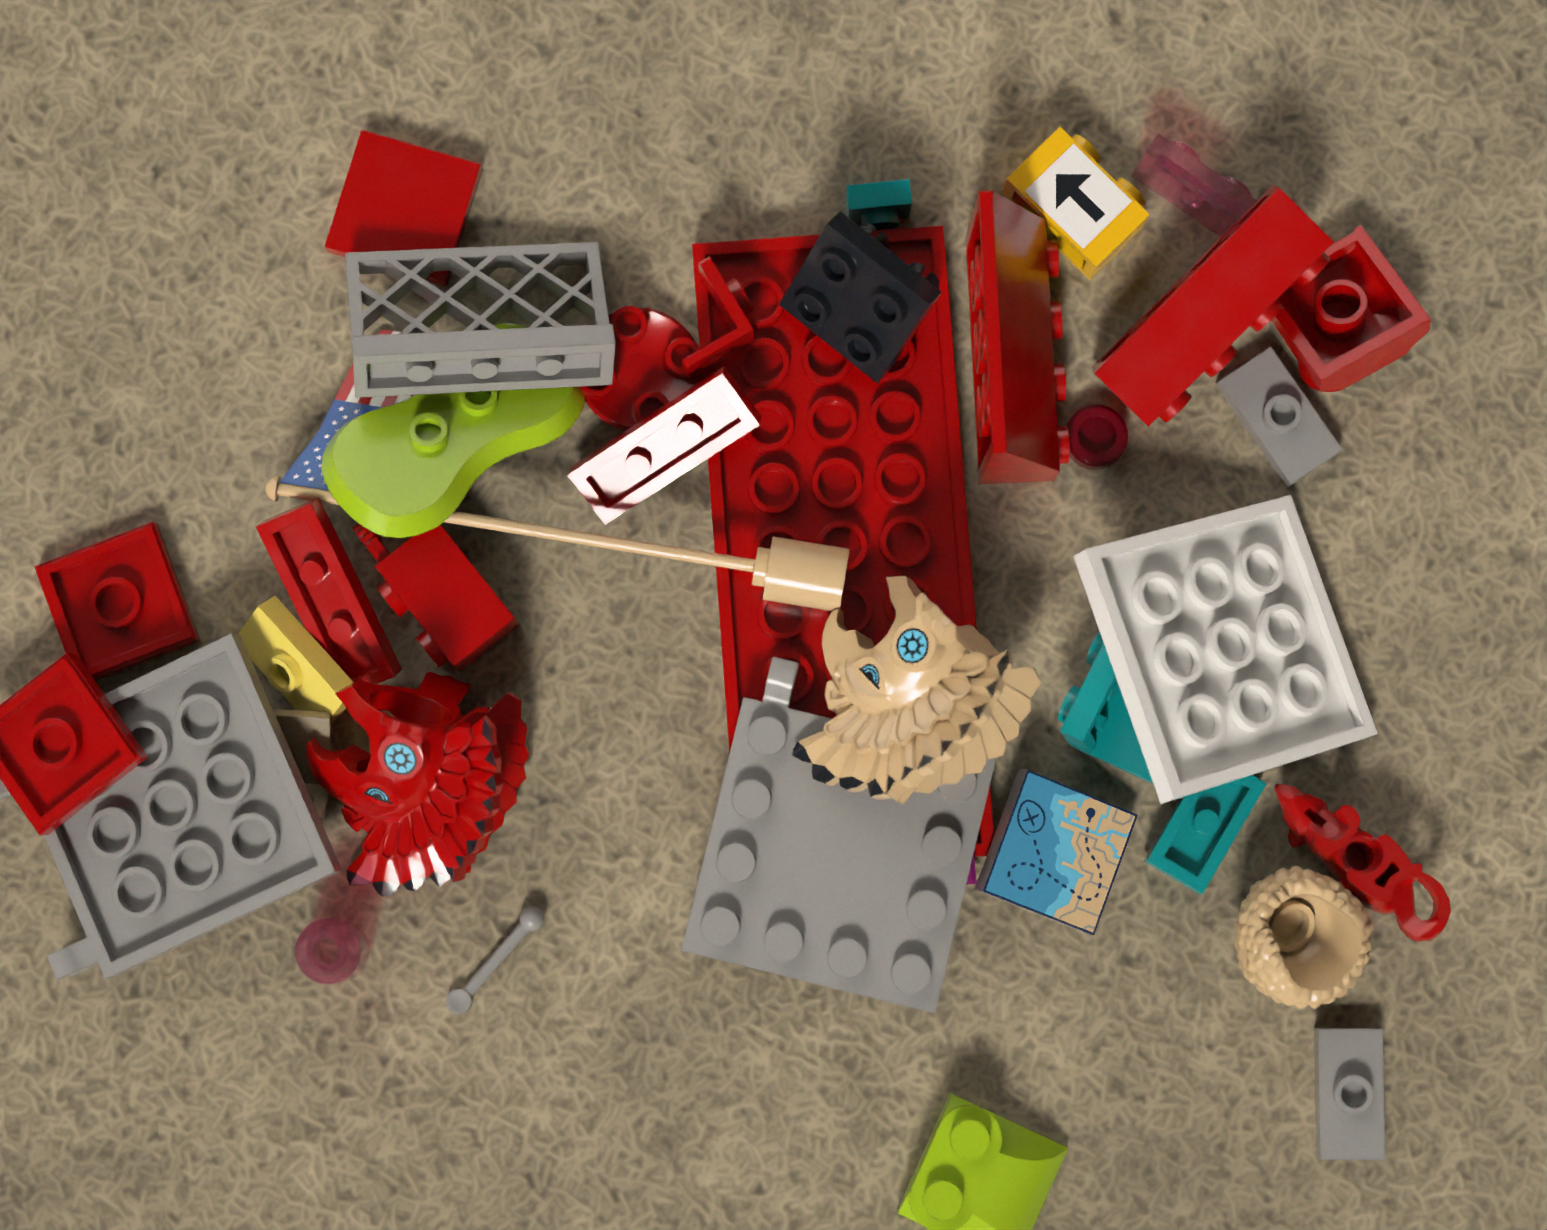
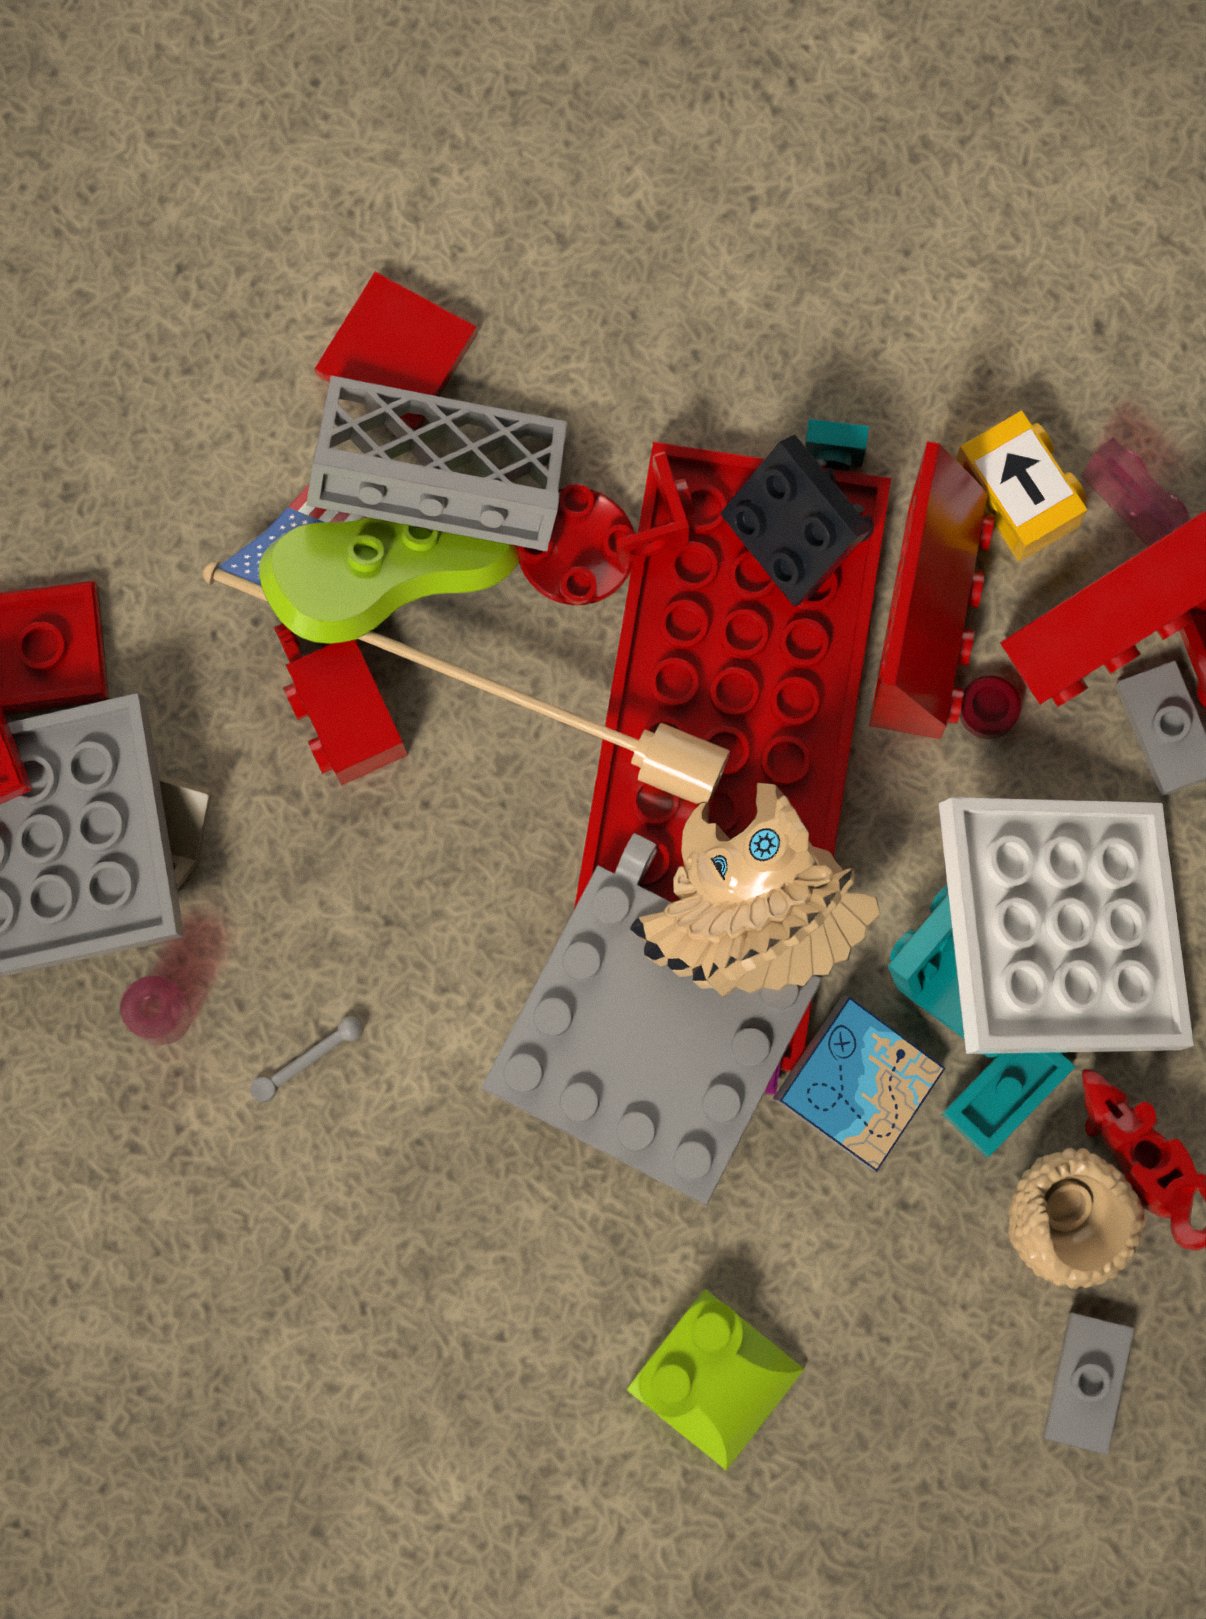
camera: 20 degrees right, 5 degrees down
(293, 659) = (191, 737): light yellow plate -> none
(328, 592) = (236, 685): red plate -> none
(430, 779) = (285, 876): red piece -> none
(665, 445) = (582, 617): plate -> none

